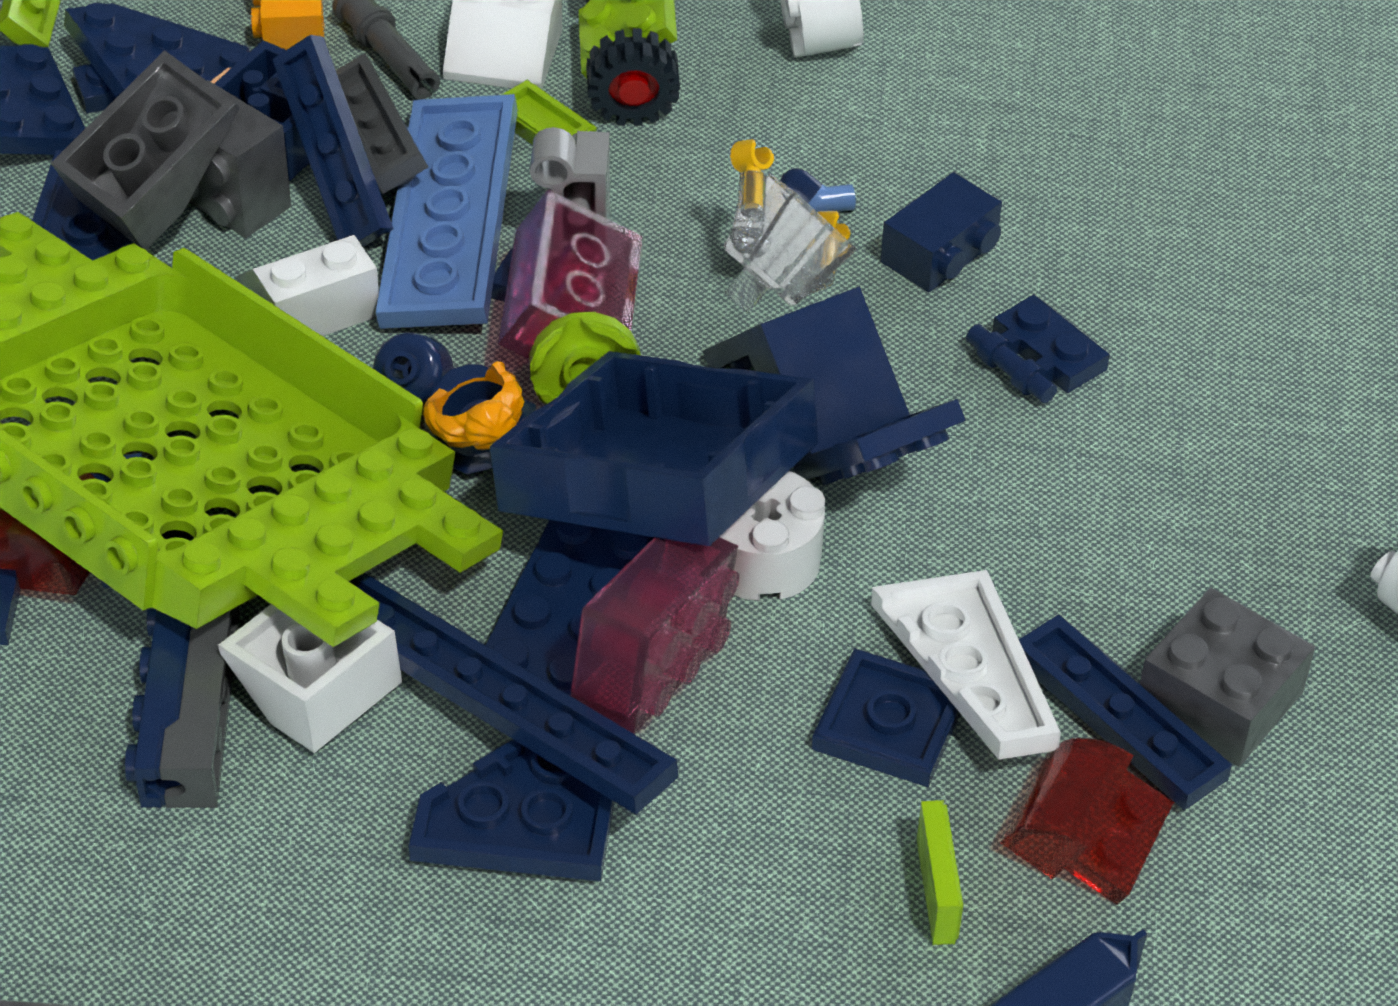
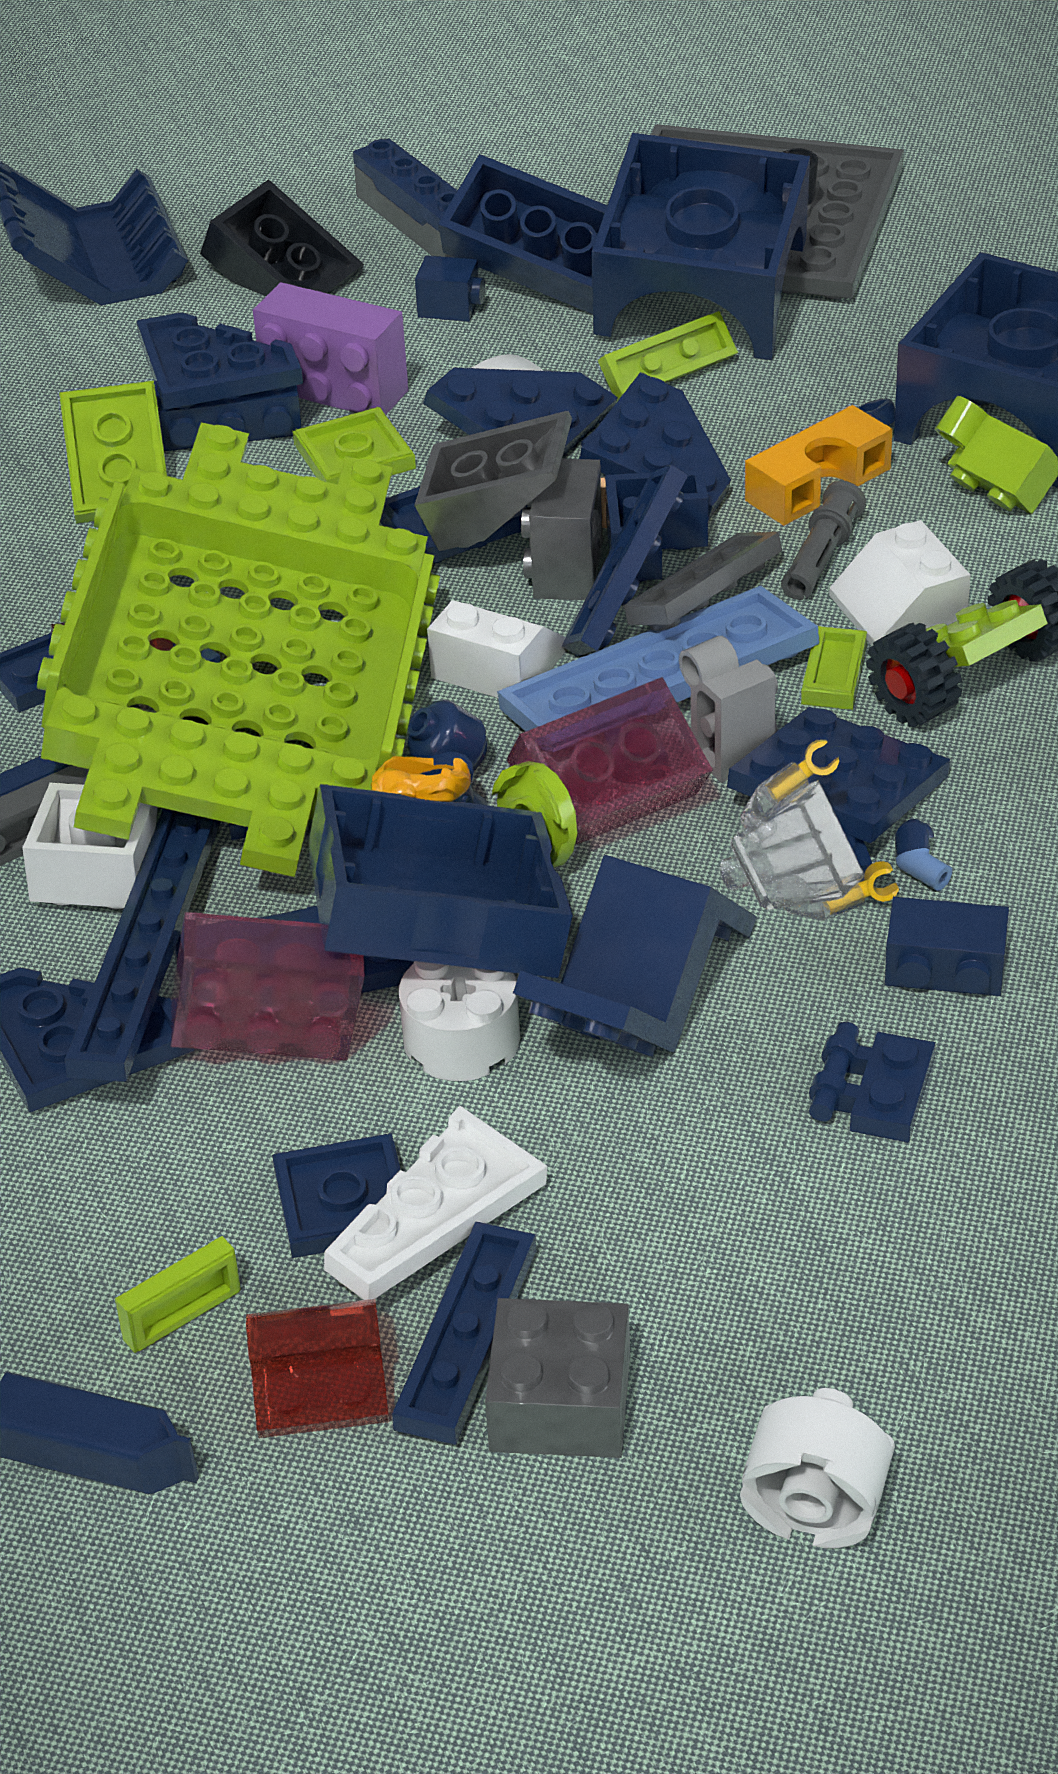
camera: 60 degrees right, 5 degrees down
(678, 181) = (875, 773): none -> dark blue plate

